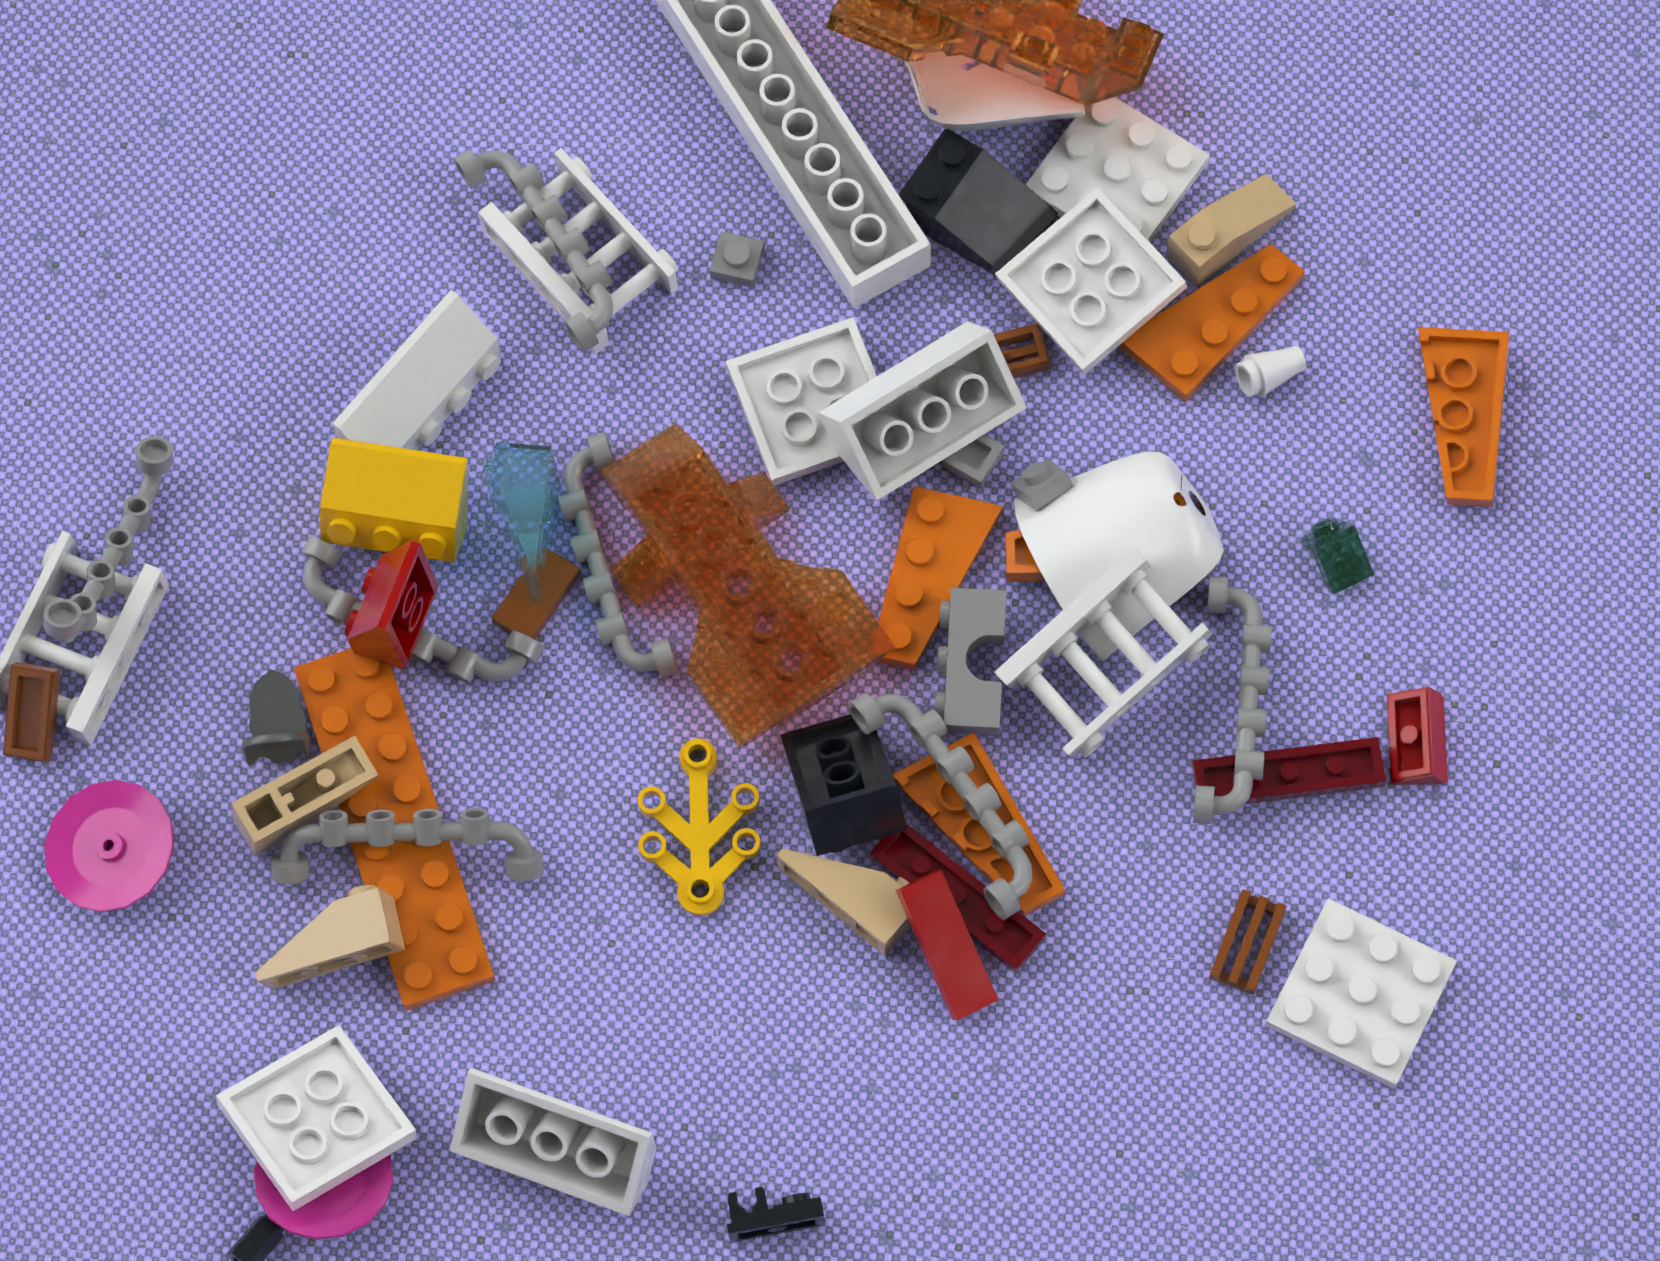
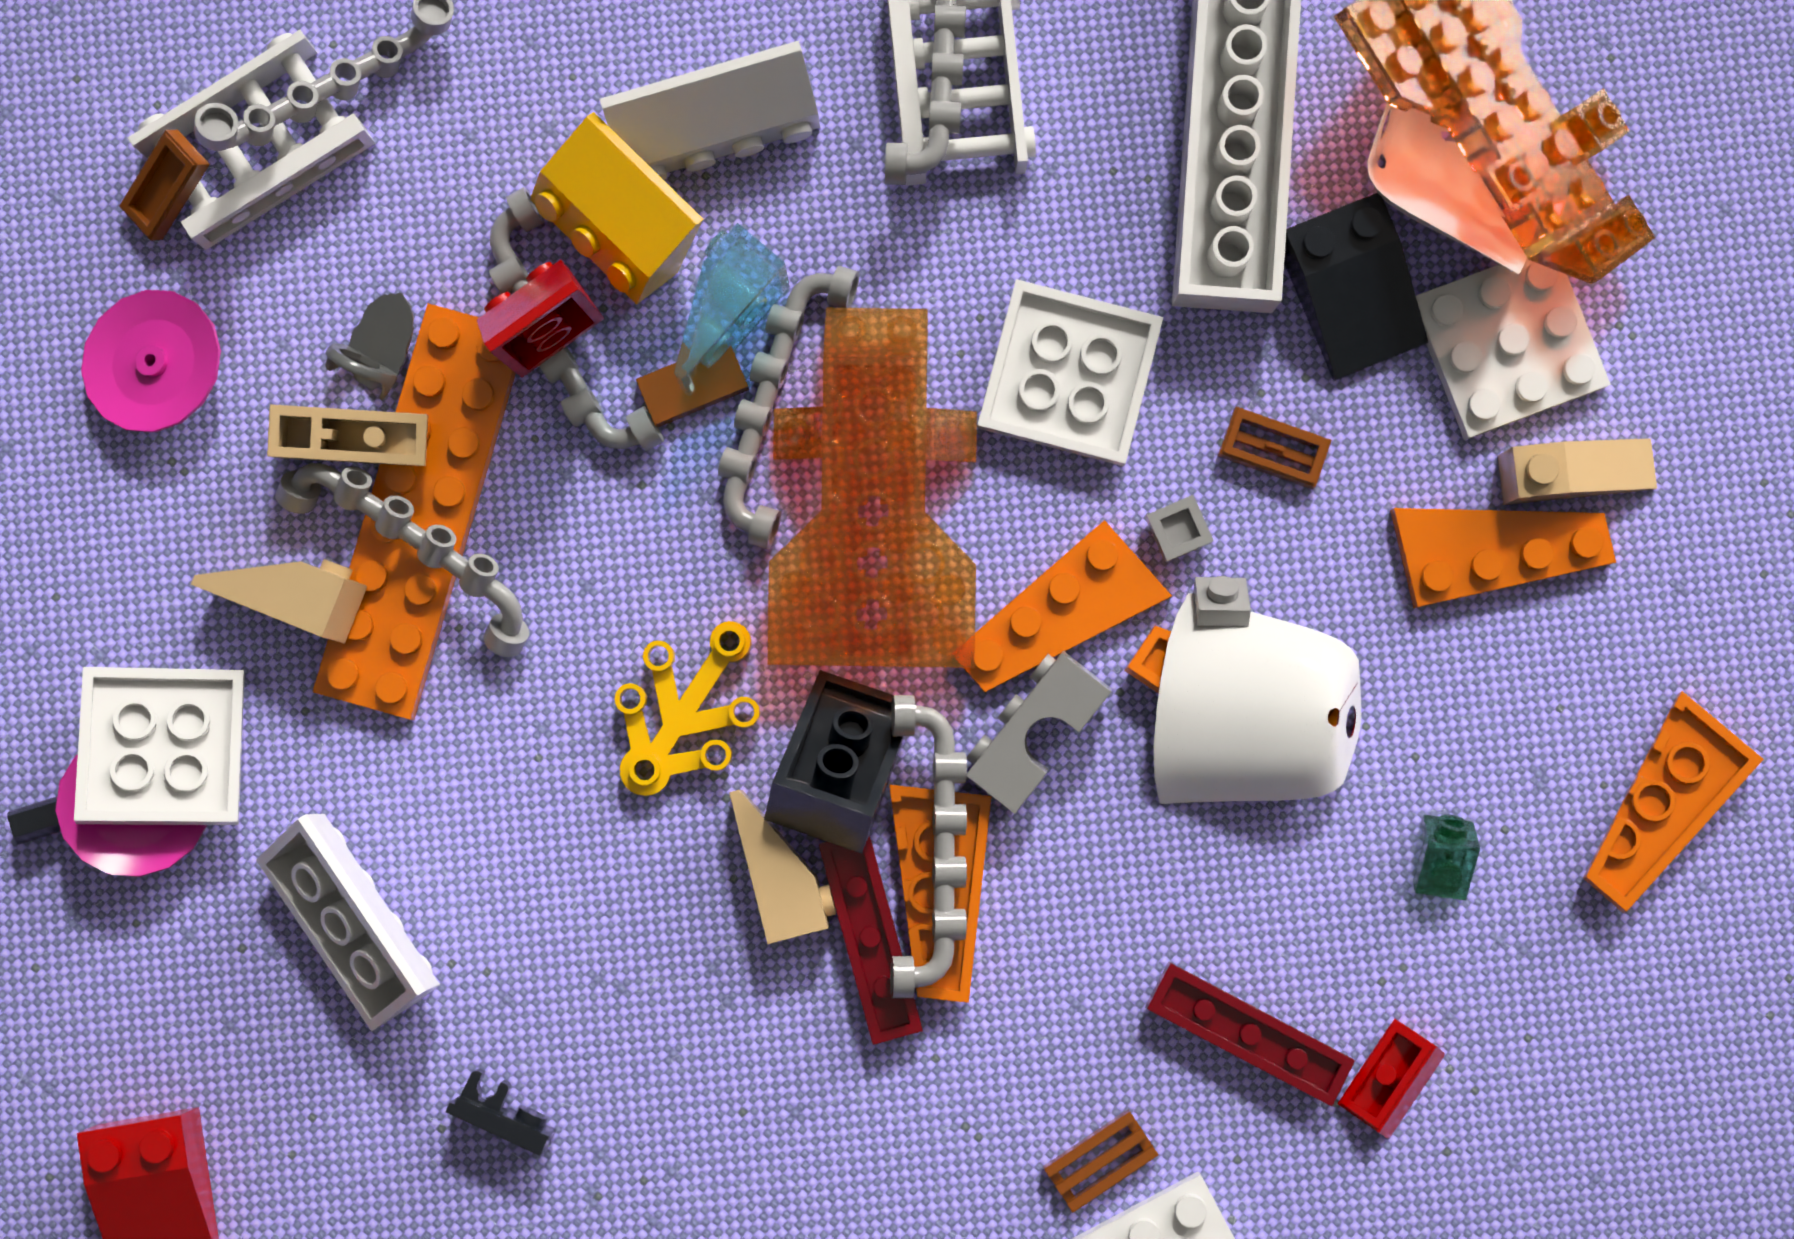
camera: 35 degrees right, 15 degrees up
(737, 259) = (1098, 182): light grey plate -> none
(923, 409) = (1162, 457): white slope -> none
(947, 945) = (824, 981): red tile -> none
(1060, 639) = (1181, 766): white fence -> none
(1091, 280) = (1409, 436): white plate -> none
(1251, 721) = (1248, 965): light grey bar -> none
(1267, 370) = (1509, 635): white cone -> none

